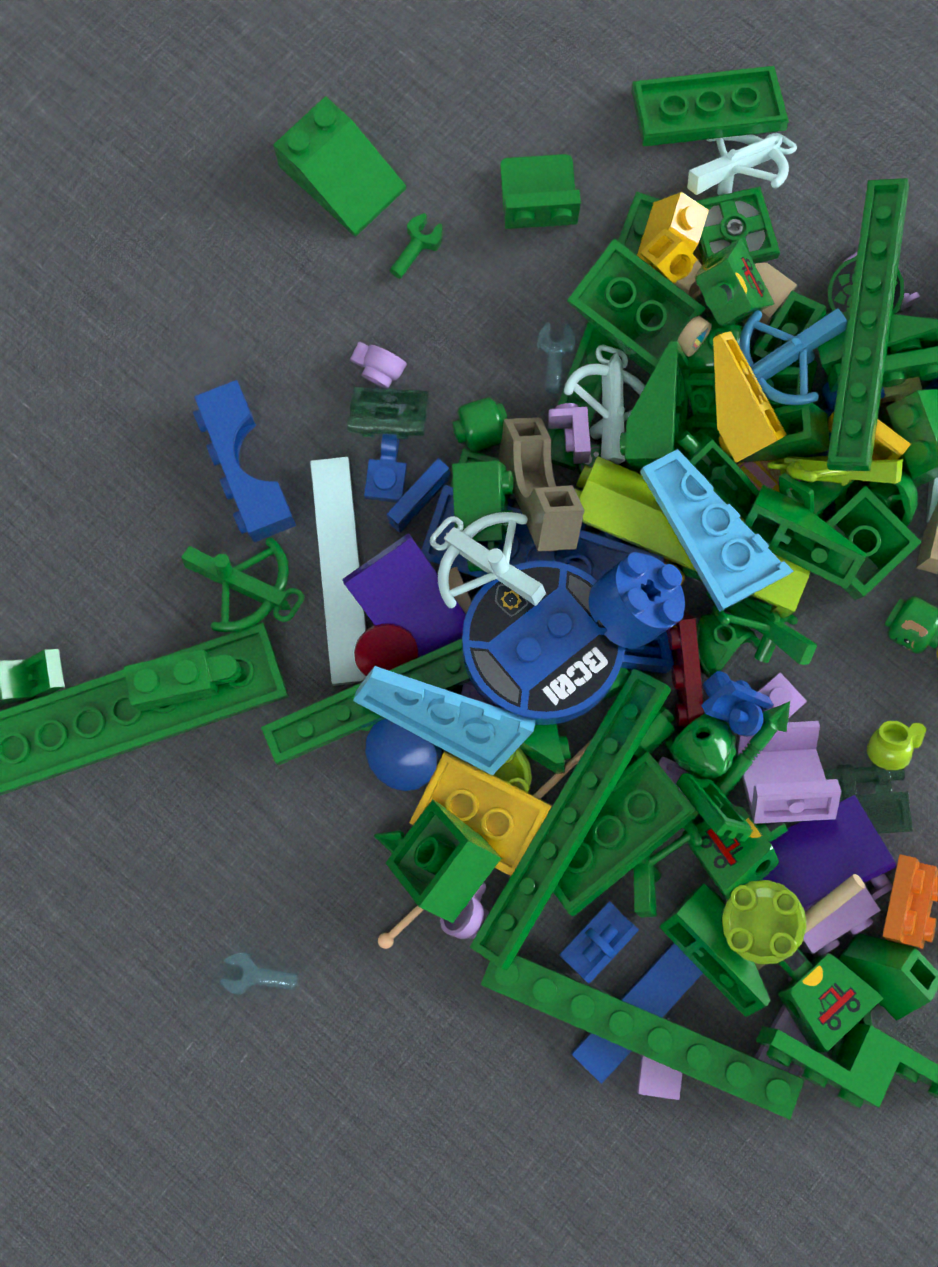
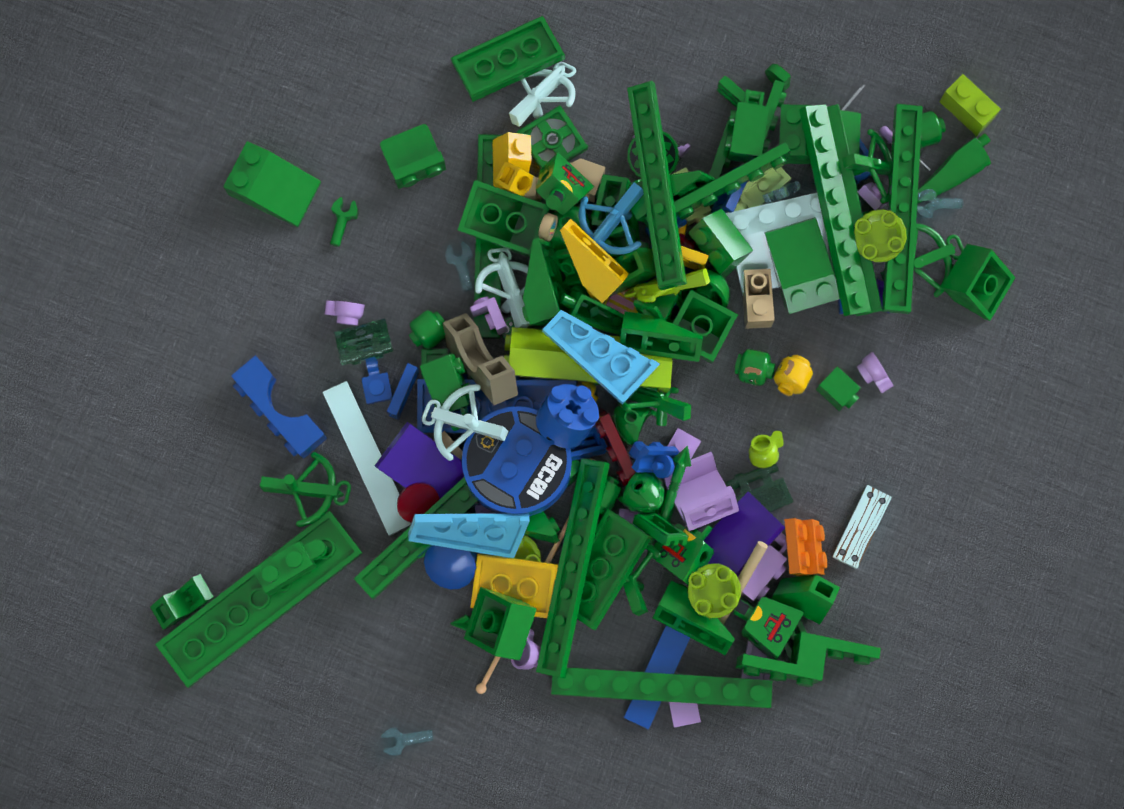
camera: 20 degrees left, 0 degrees up
(598, 942) = (617, 640): blue hips -> none

